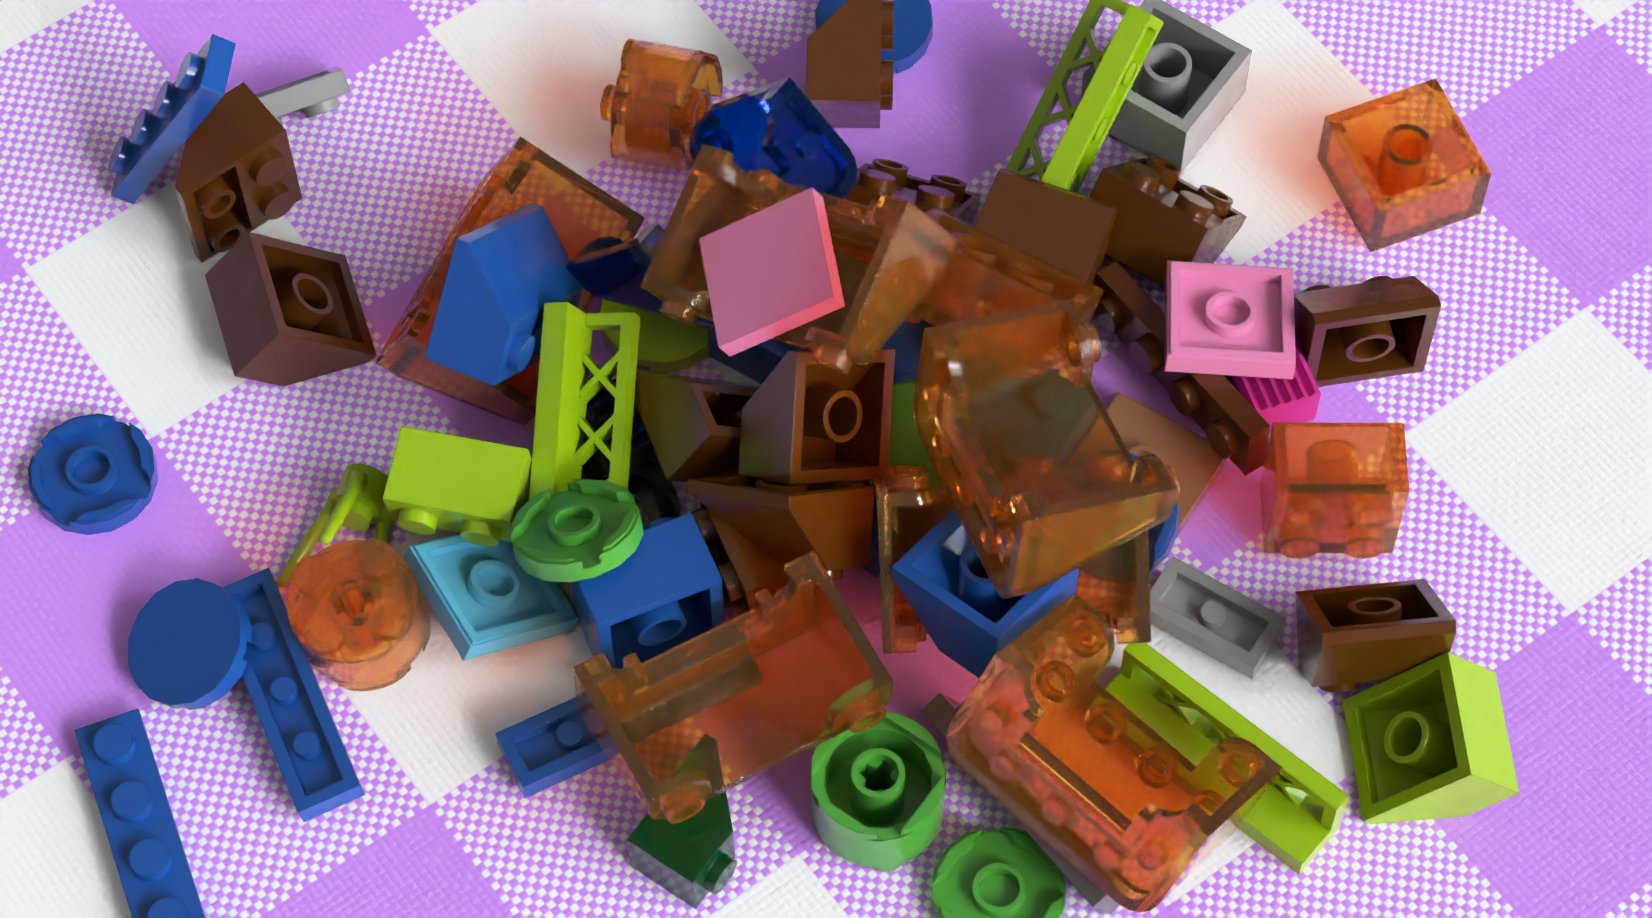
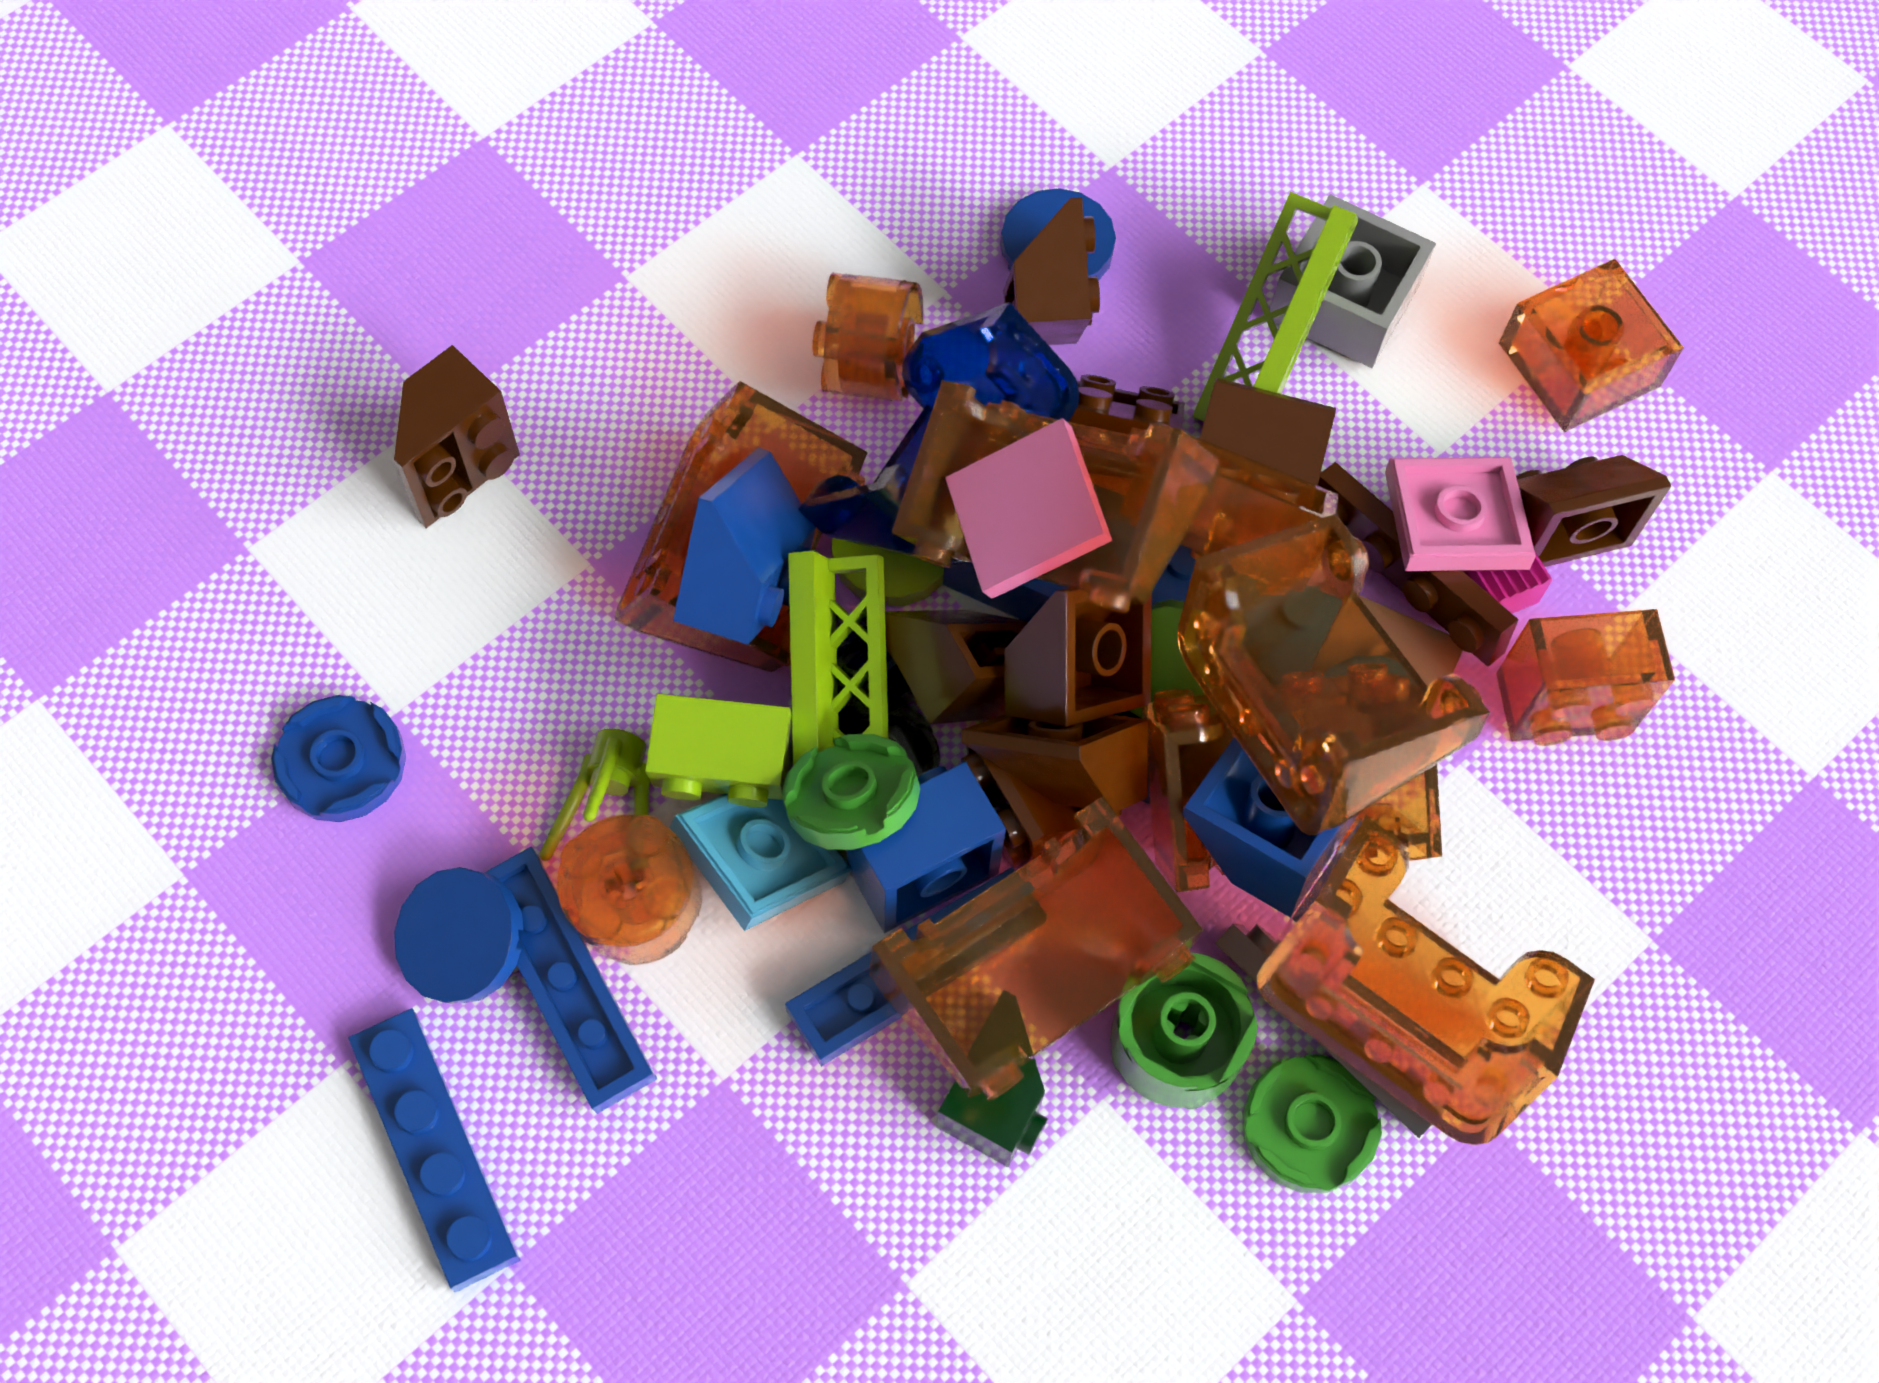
camera: 10 degrees left, 5 degrees up
(173, 119) = (384, 387): blue plate -> none
(287, 311) = (519, 574): reddish brown slope -> none
(312, 94) = (520, 349): light grey plate -> none
(1164, 217) = (1372, 414): reddish brown slope -> none
(1214, 617) = (1490, 818): light grey plate -> none
(1298, 807) = (1499, 933): lime fence -> none
(1369, 632) = (1647, 821): reddish brown slope -> none
(1430, 743) = (1712, 928): lime slope -> none

